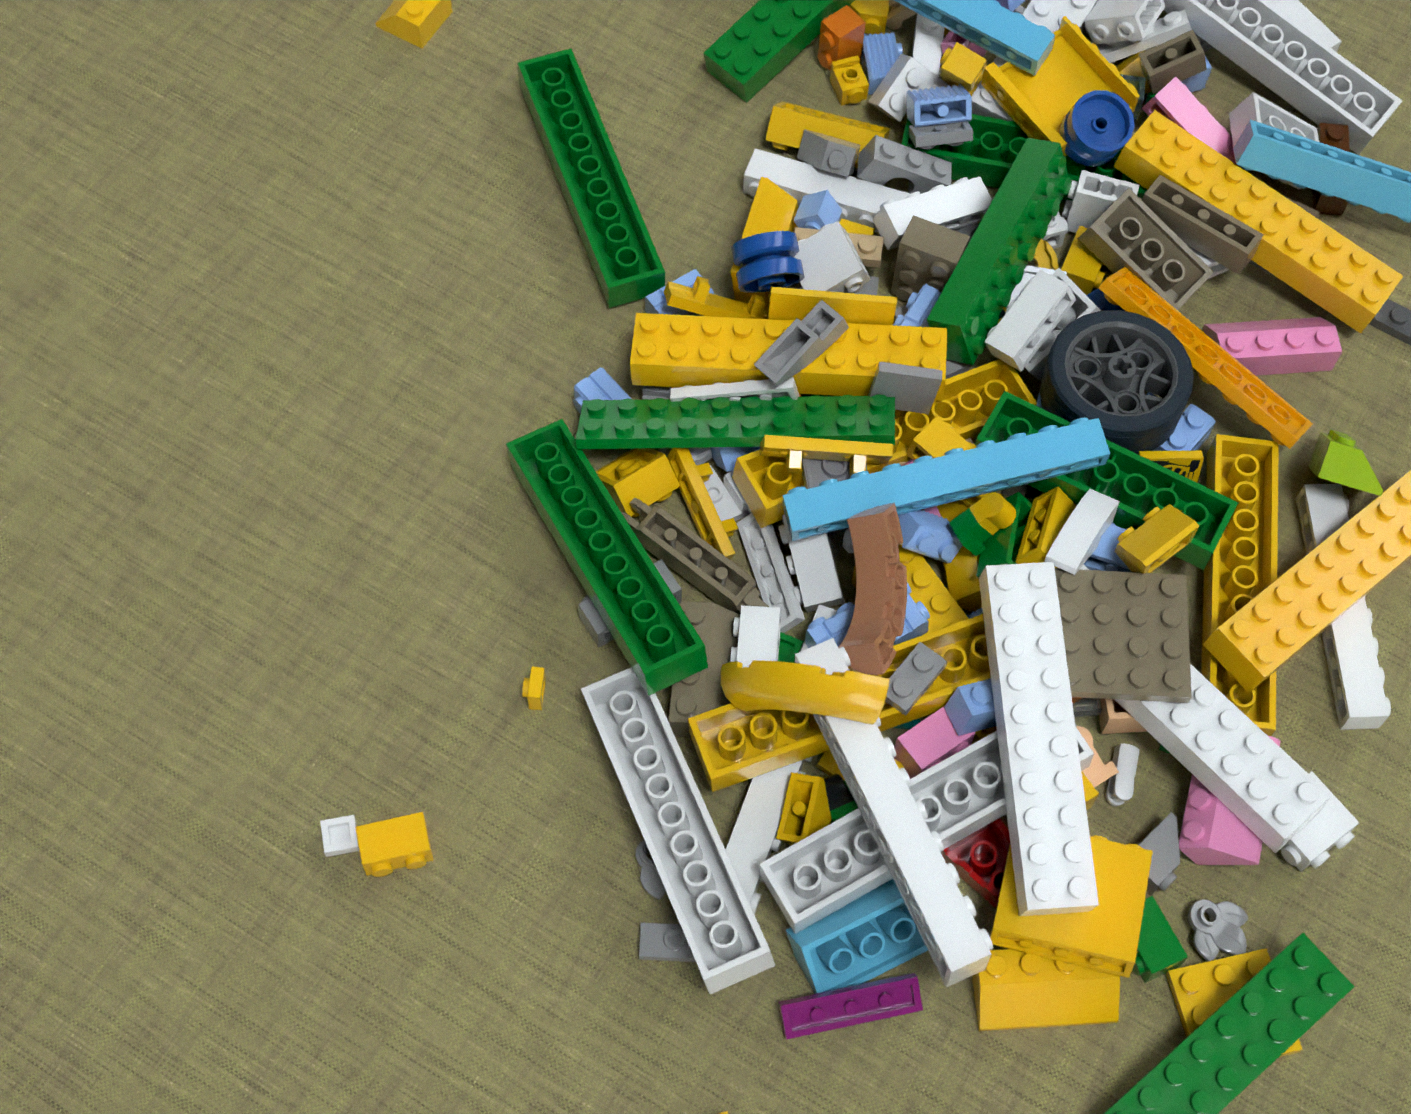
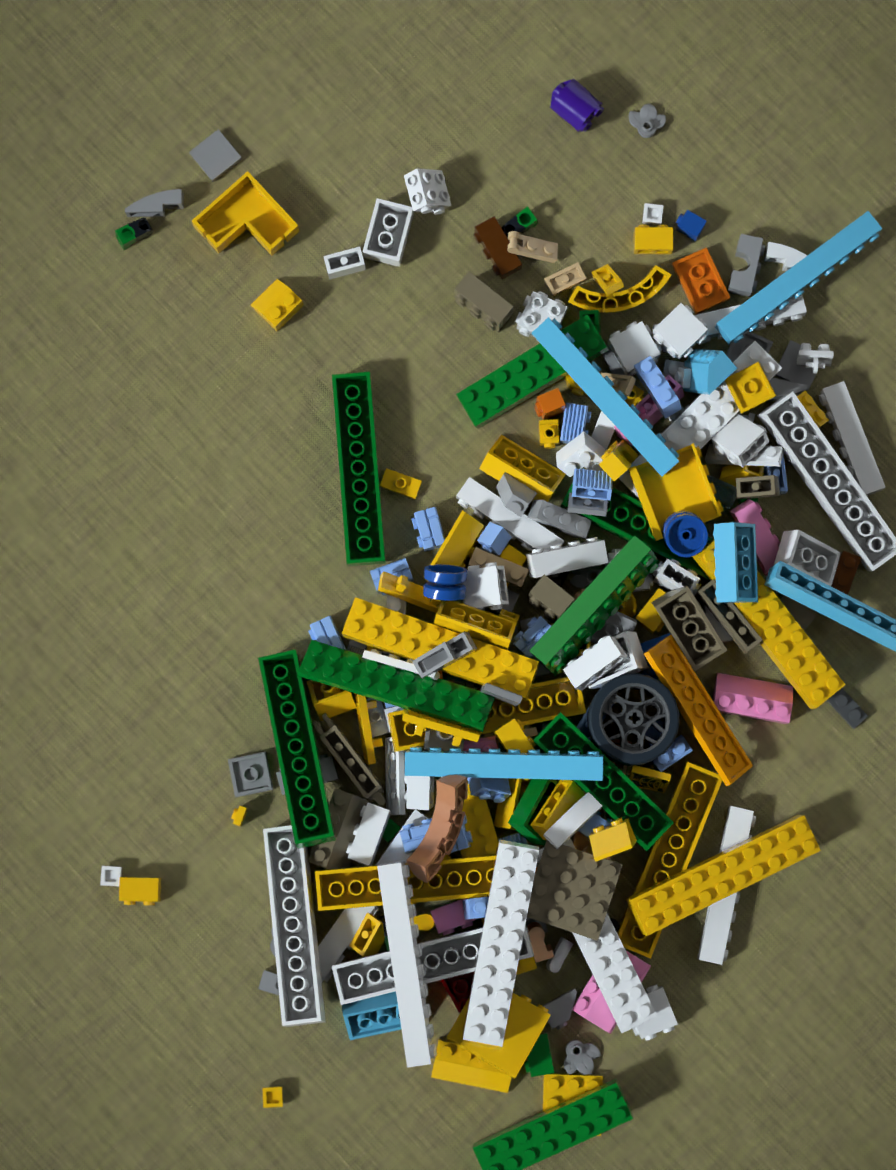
camera: 20 degrees right, 20 degrees up
(536, 627) = (250, 774): none -> light grey tile
(657, 188) = (400, 483): none -> yellow plate
(714, 228) = (429, 528): none -> light blue brick
(804, 689) = (374, 888): yellow brick -> none
(850, 1006) = (364, 1047): magenta plate -> none
(914, 678) = (446, 884): light grey plate -> none
(983, 521) = (519, 791): leg -> none
(1185, 136) = (735, 562): none -> medium azure slope
(1343, 462) = (757, 804): lime slope -> none

